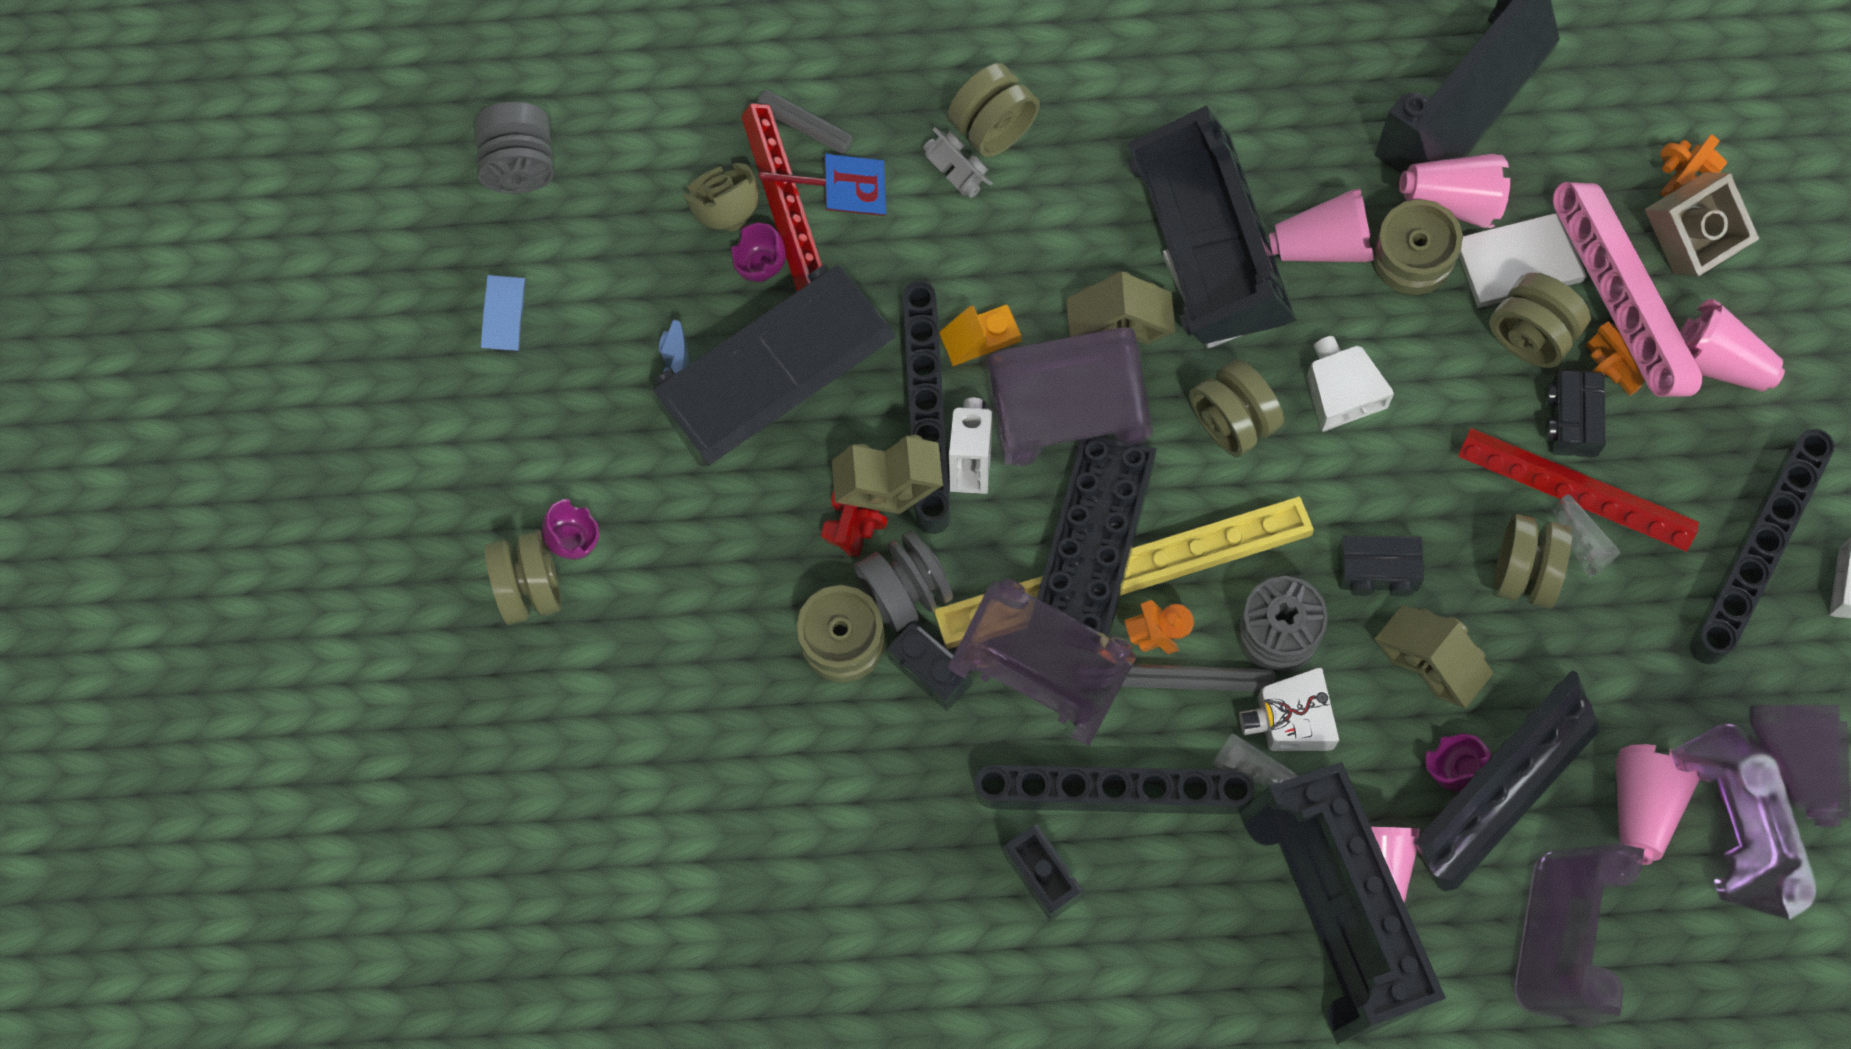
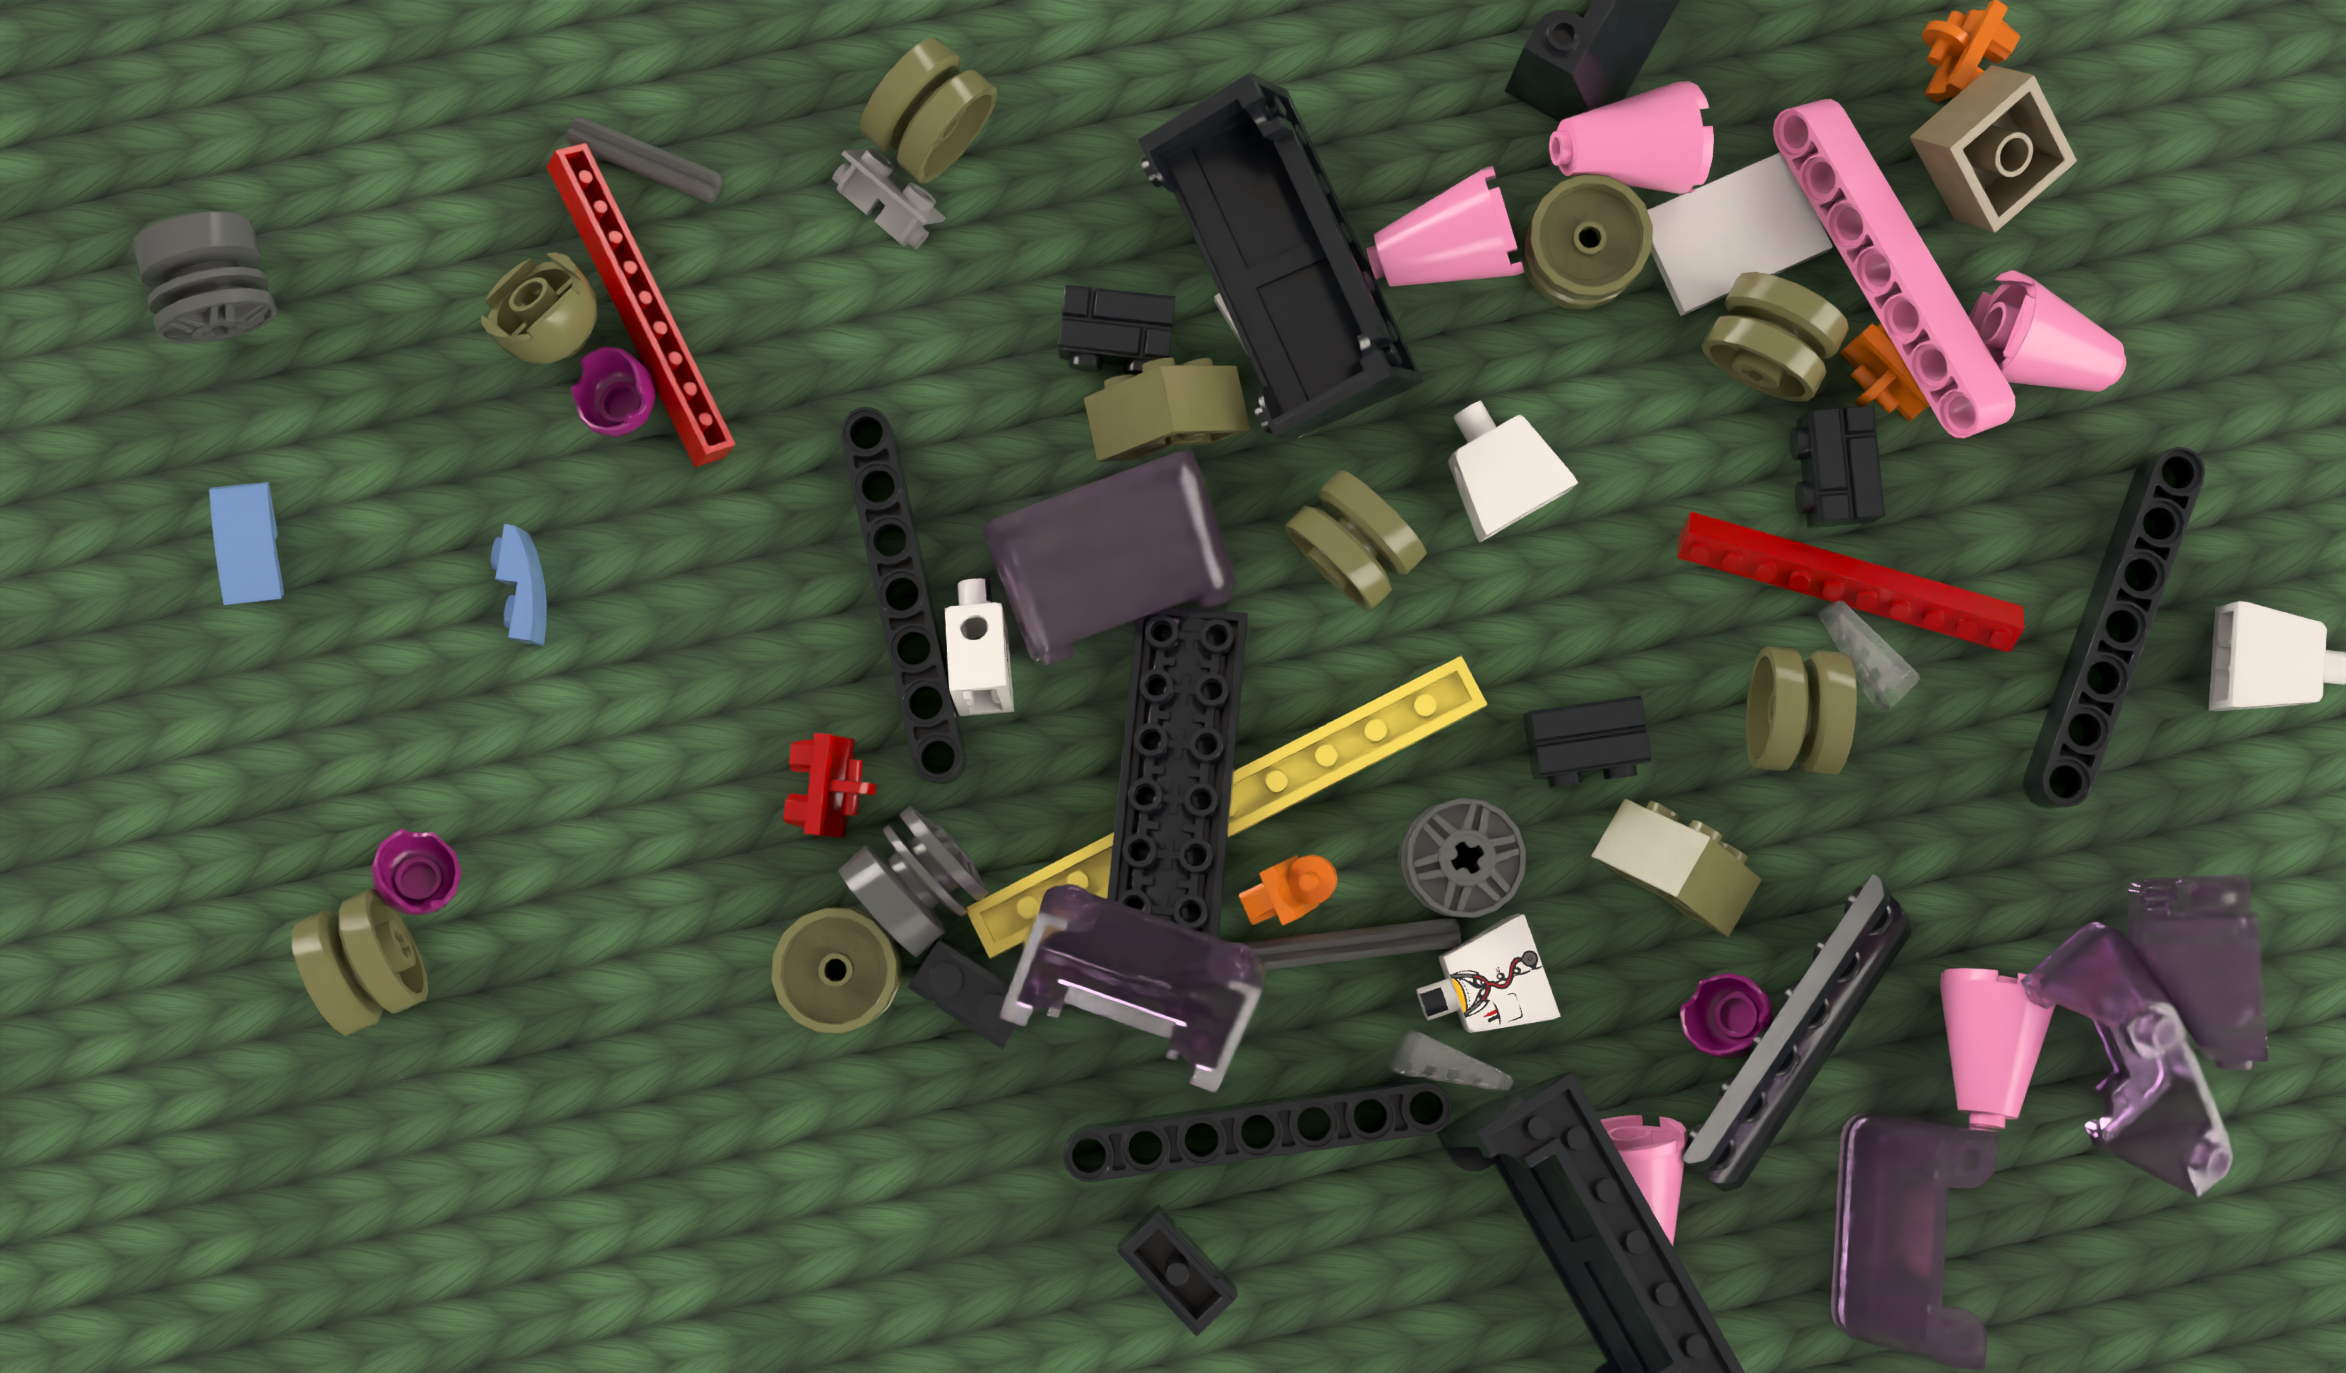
camera: 20 degrees left, 15 degrees up
(771, 365) = (663, 583): black windscreen -> none
(849, 184) = (734, 256): blue piece -> none
(887, 478) = (865, 732): olive brick -> none
(980, 334) = (964, 468): light orange slope -> none
(1092, 257) = (1114, 328): none -> black brick

